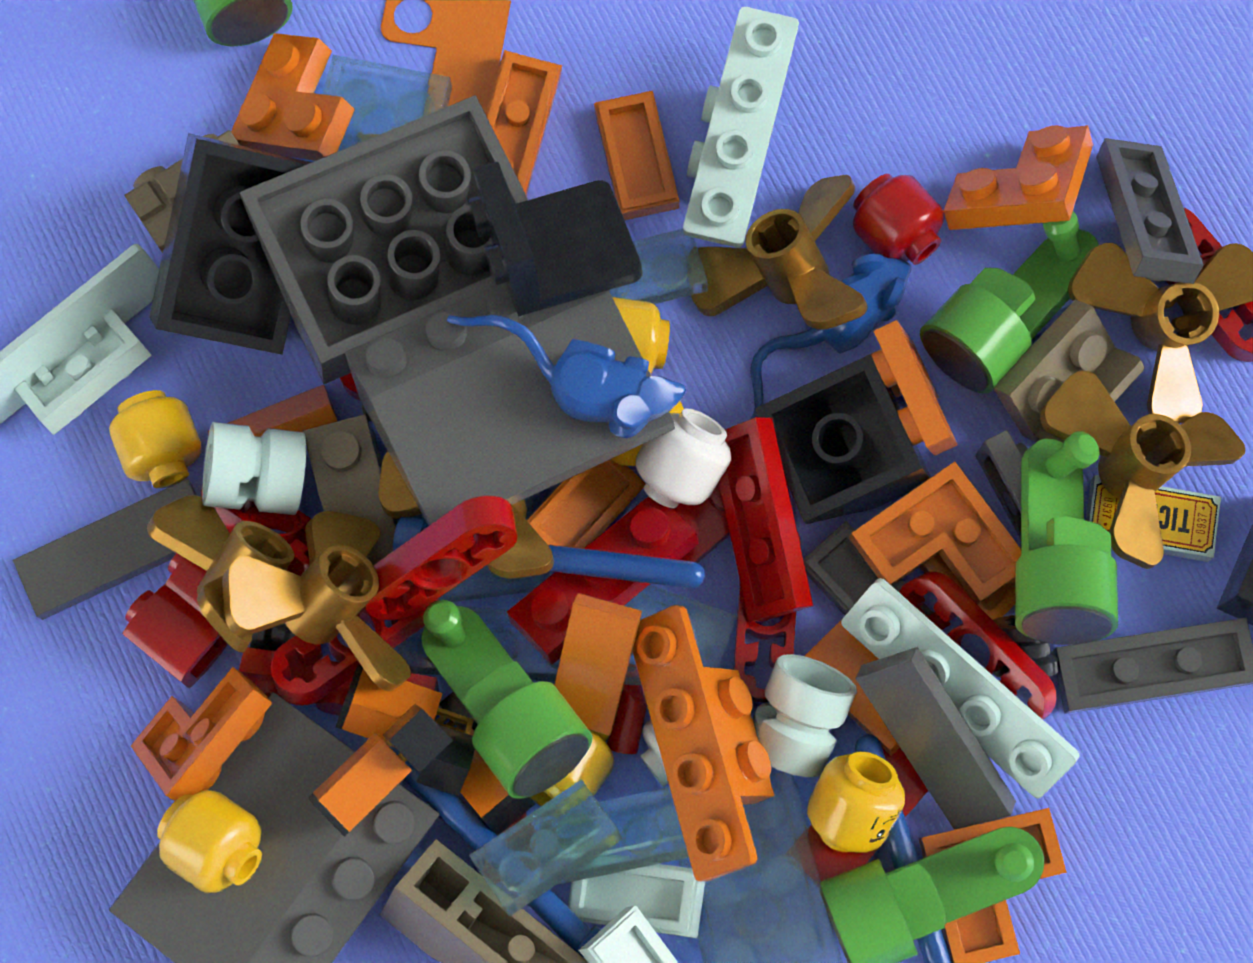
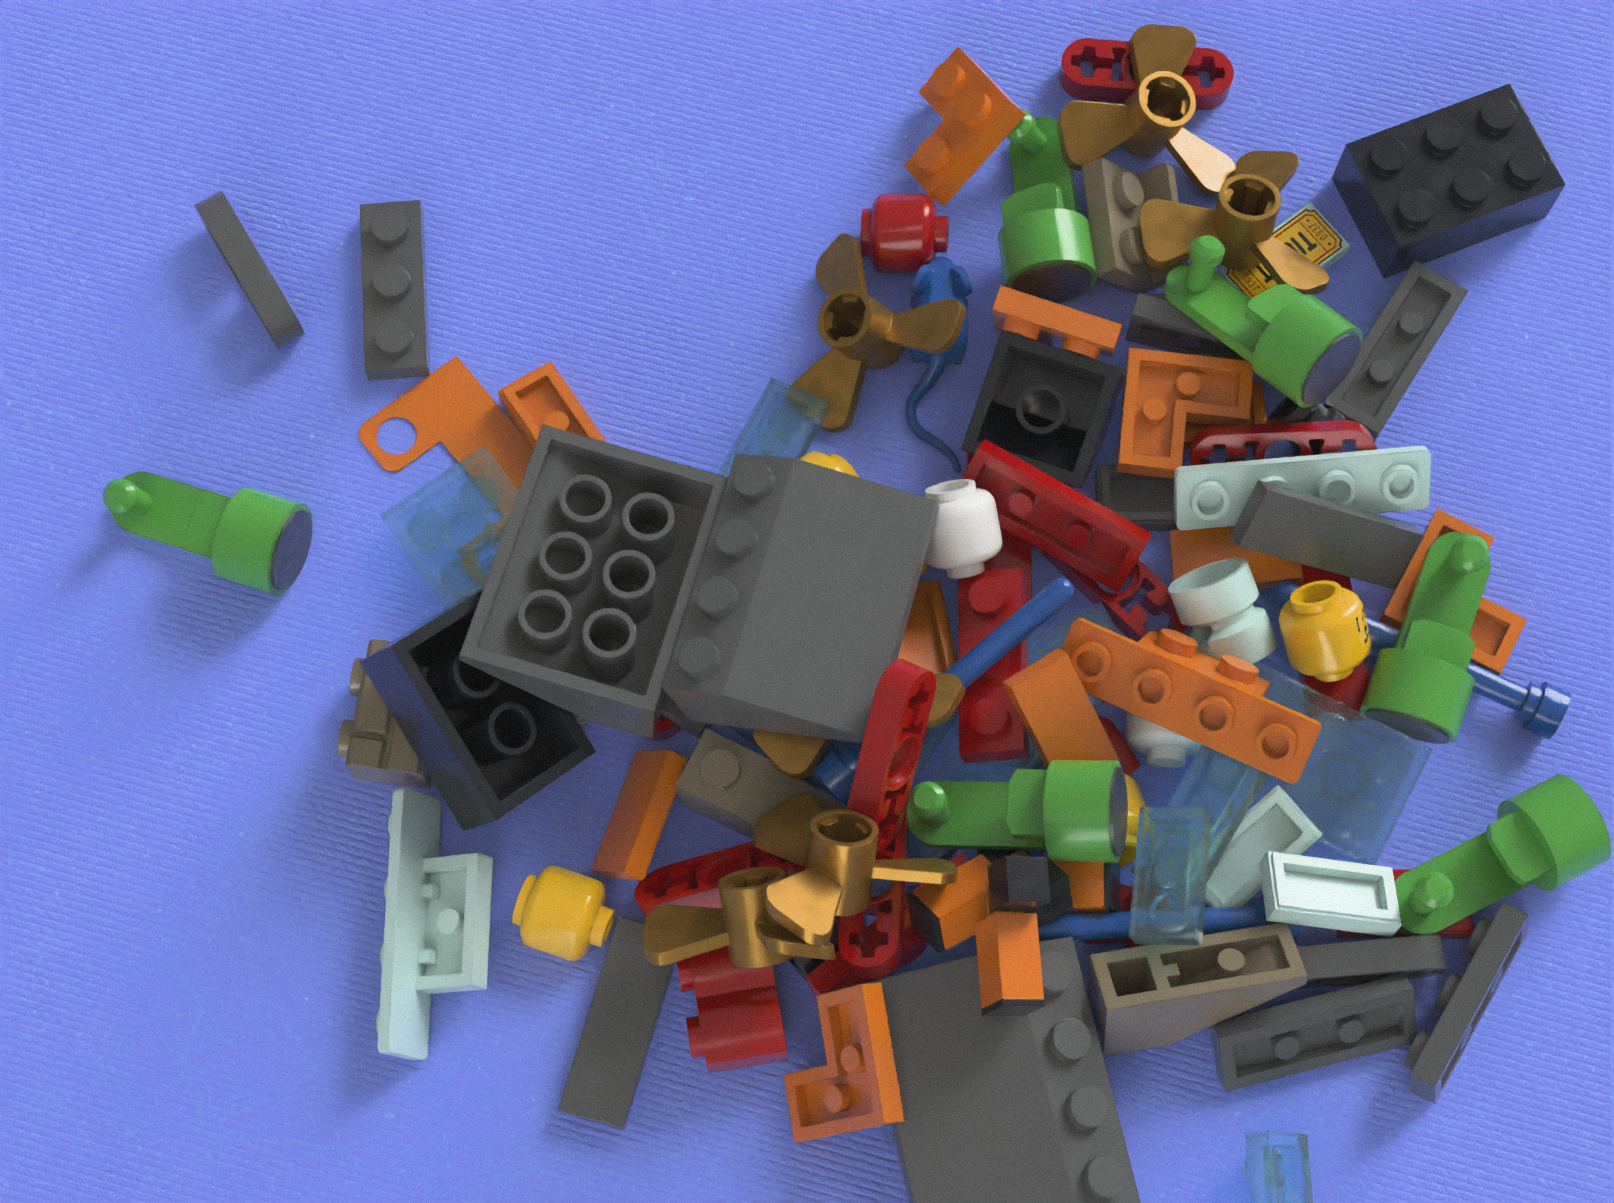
camera: 50 degrees left, 5 degrees down
(209, 841) = (952, 1118): yellow head -> none
(254, 468) = (671, 847): light aqua wheel -> none
(281, 105) = (389, 593): orange plate -> none
(555, 243) = (725, 459): black bracket -> none
(593, 384) = (861, 523): blue animal -> none
(636, 155) = (672, 371): orange tile -> none
(740, 127) = (732, 277): light aqua bracket -> none
(1149, 212) = (1064, 61): dark grey plate -> none

